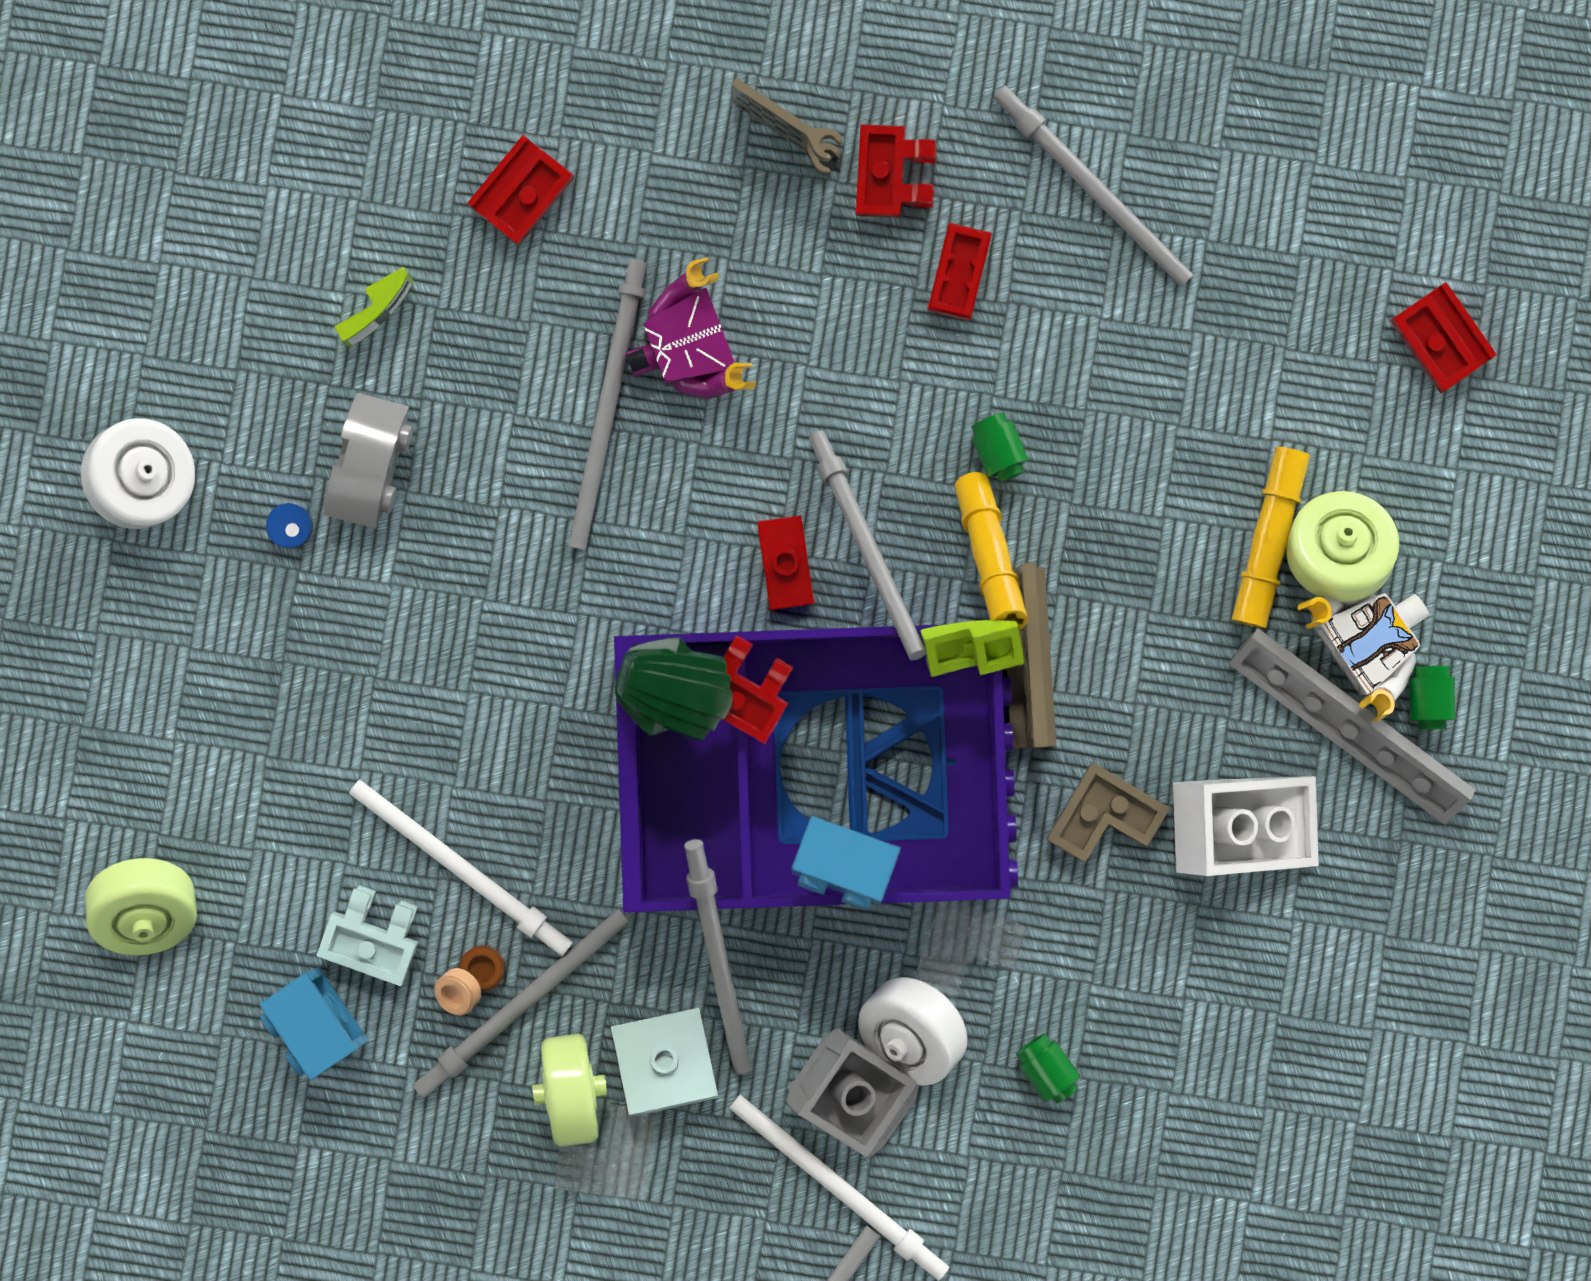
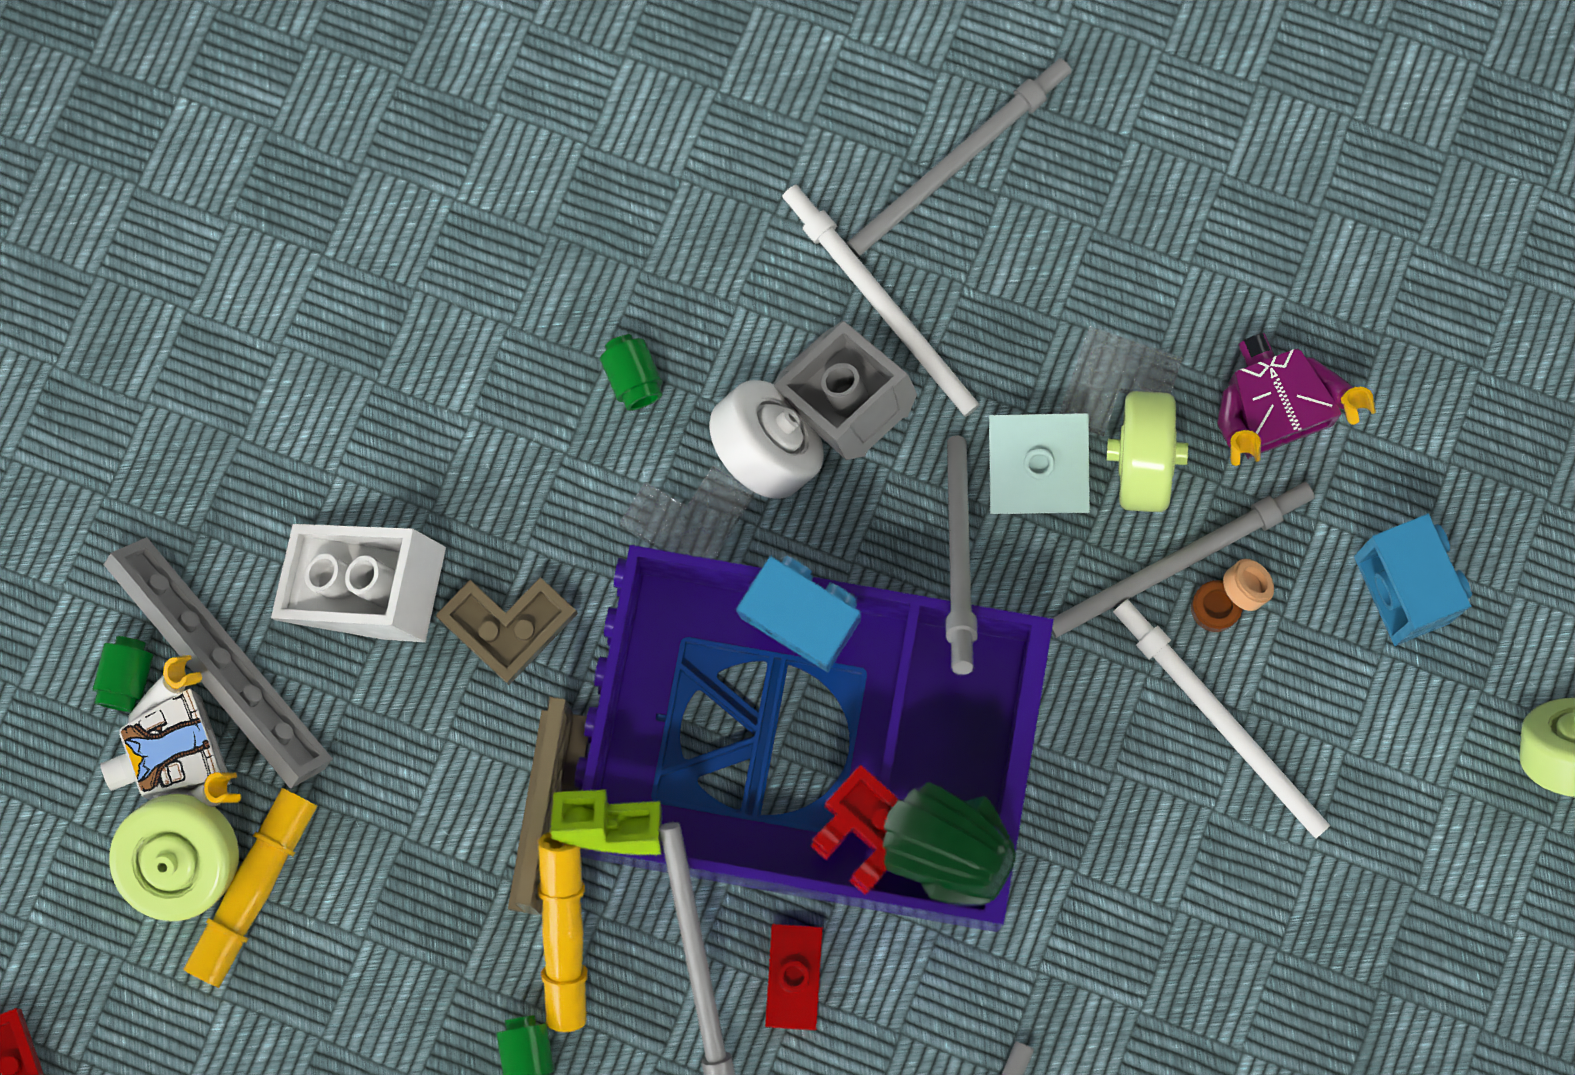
camera: 170 degrees left, 10 degrees down
(368, 947) = (1339, 653): light aqua plate -> none
(458, 1167) = (1282, 400): none -> magenta torso

